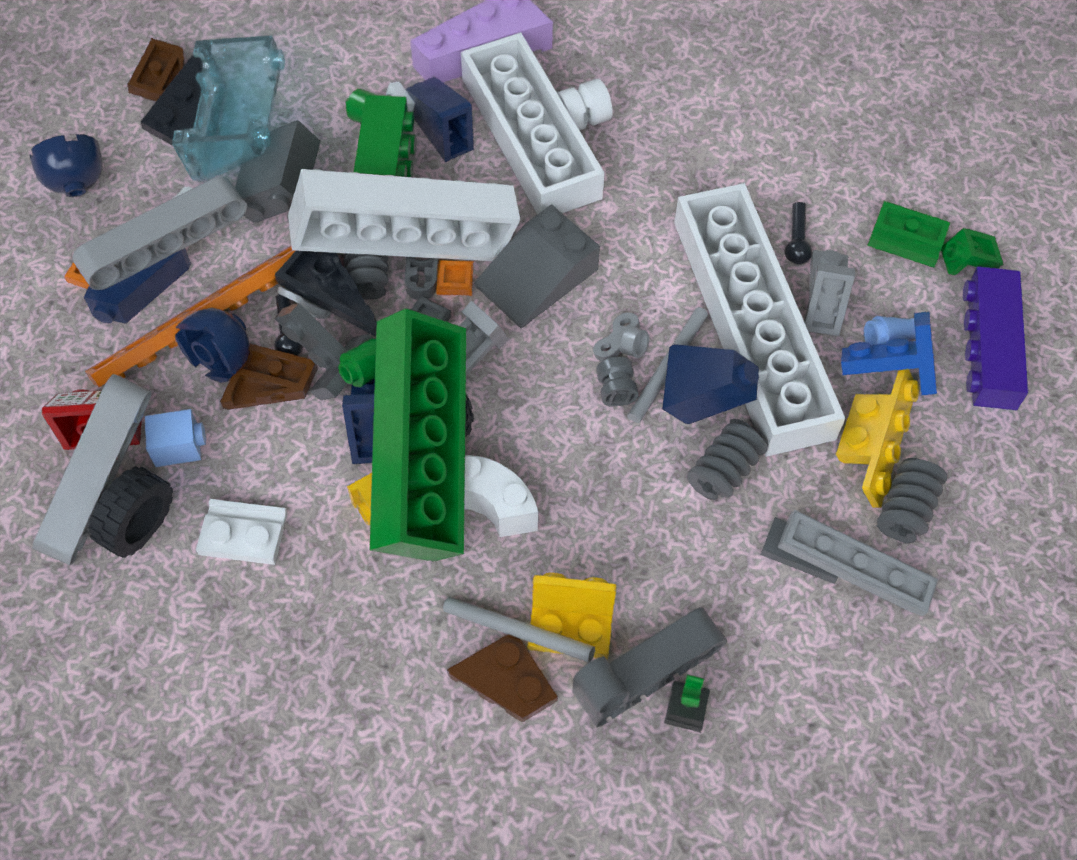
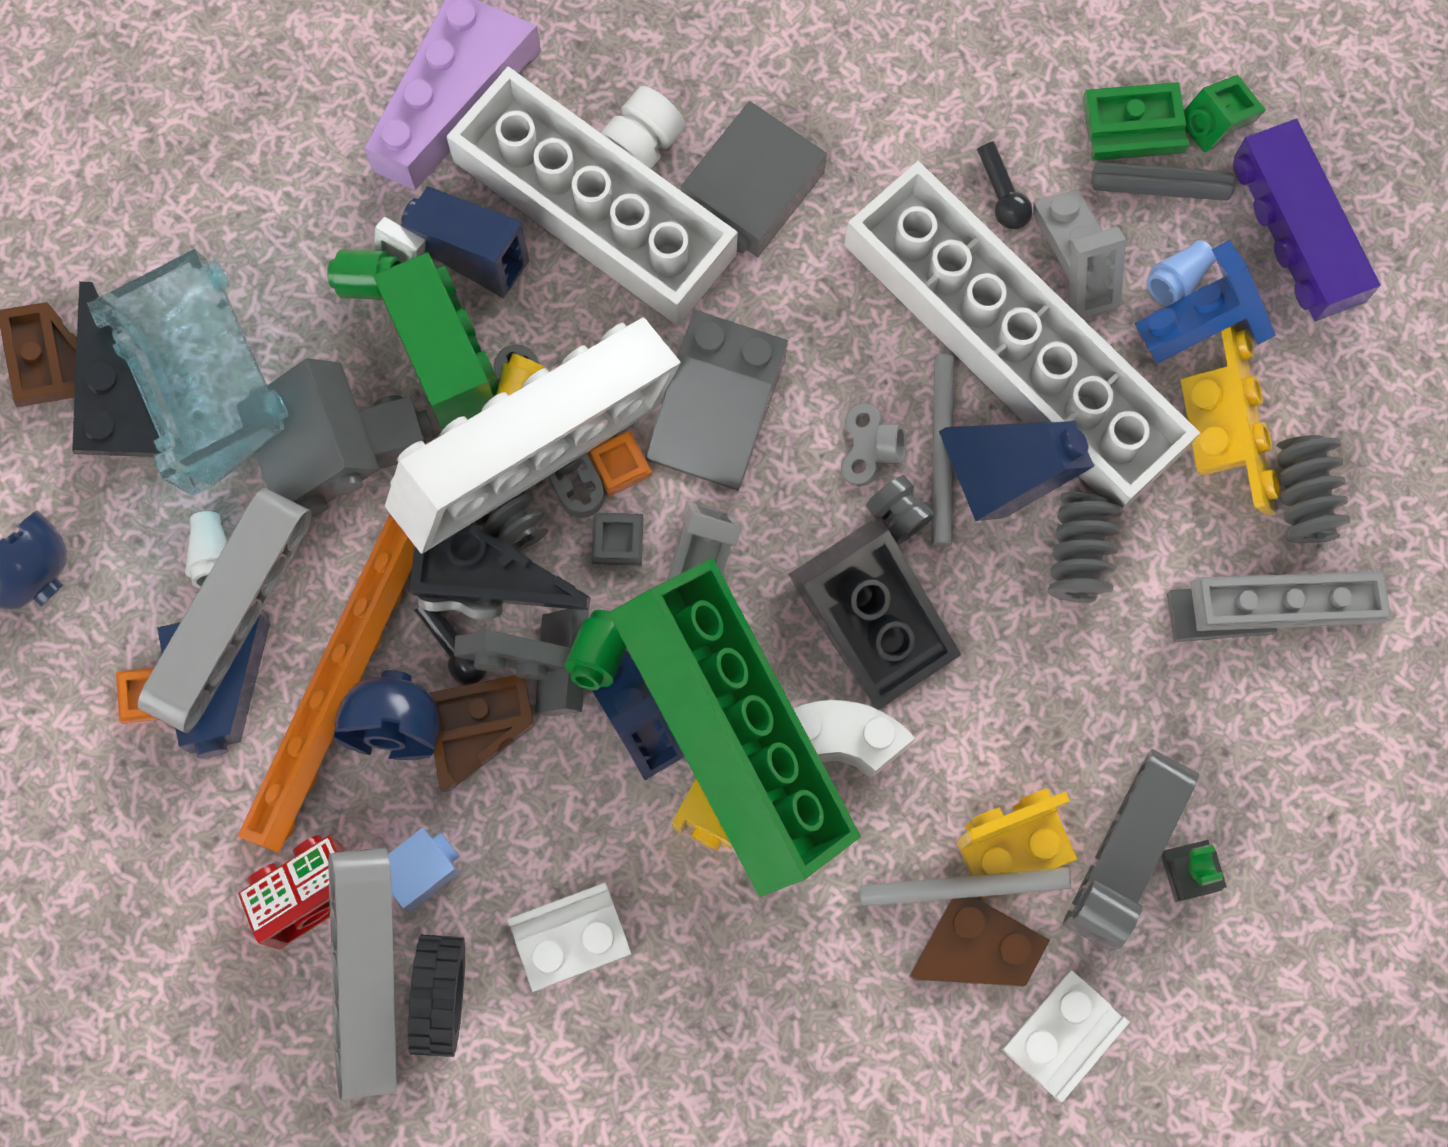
camera: 30 degrees left, 15 degrees up
(531, 769) = (1065, 1036): none -> white plate
(562, 435) = (875, 613): none -> black slope
(639, 159) = (756, 176): none -> dark grey brick
(909, 276) = (1162, 181): none -> dark grey axle

